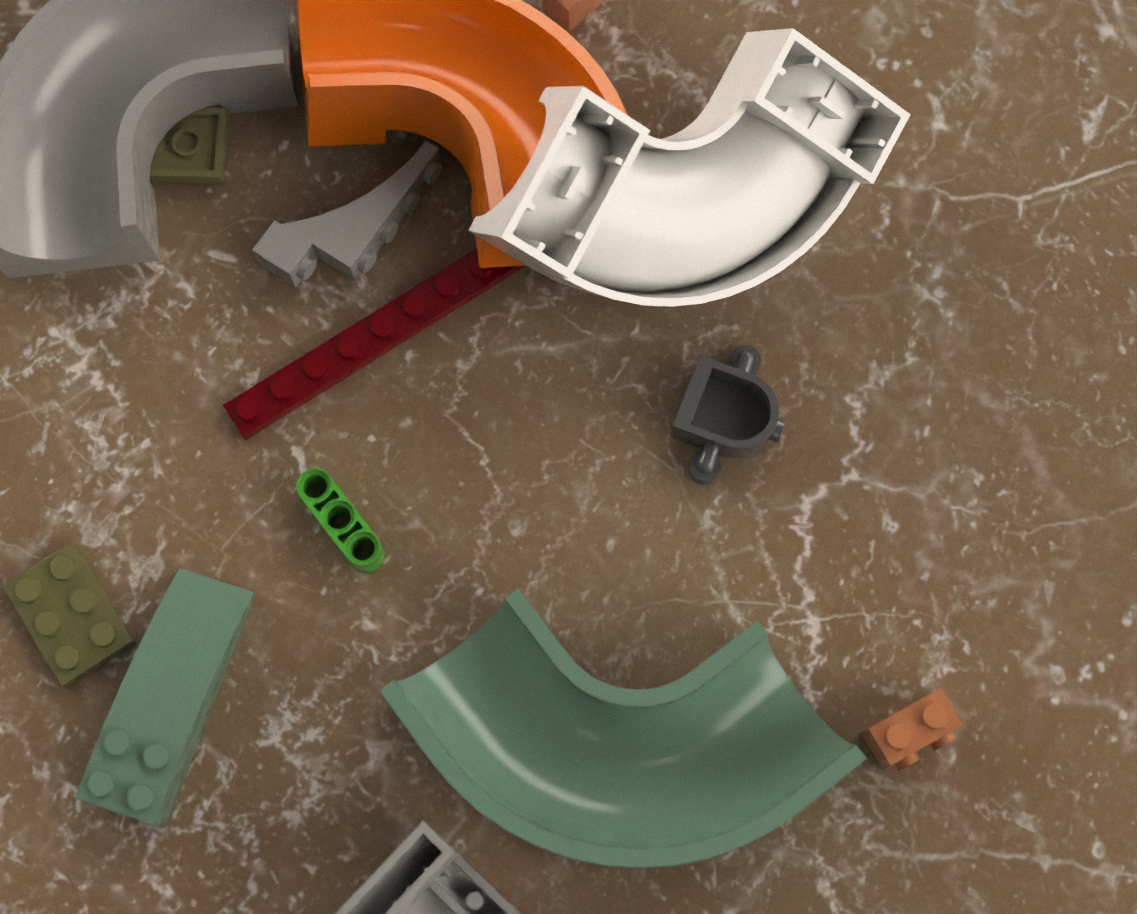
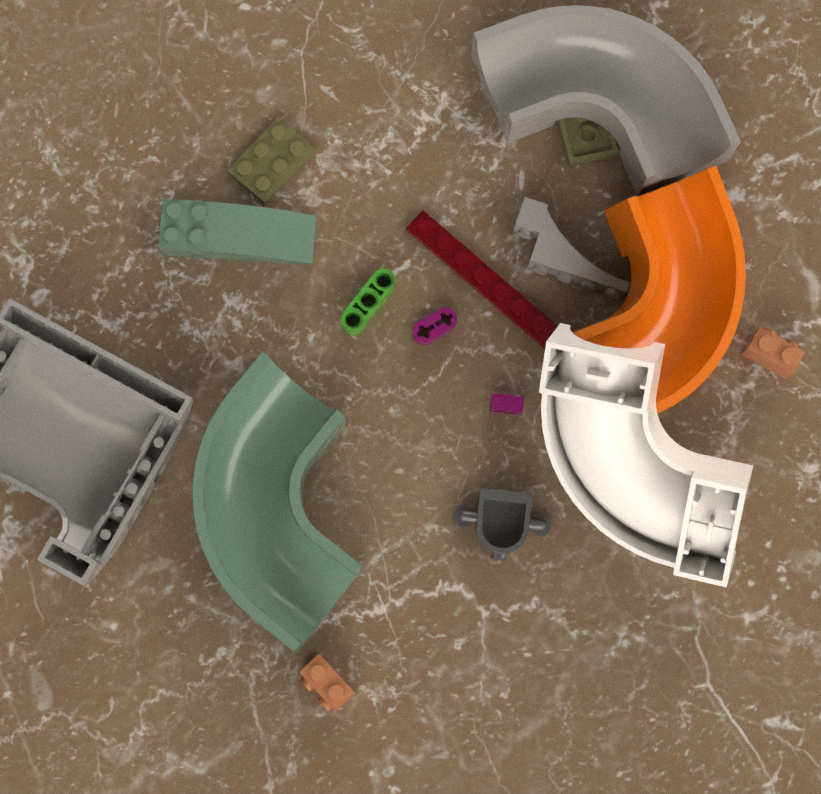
camera: 70 degrees right, 5 degrees up
(397, 436) = (431, 321): none -> magenta beam
(553, 361) = (507, 404): none -> magenta piece

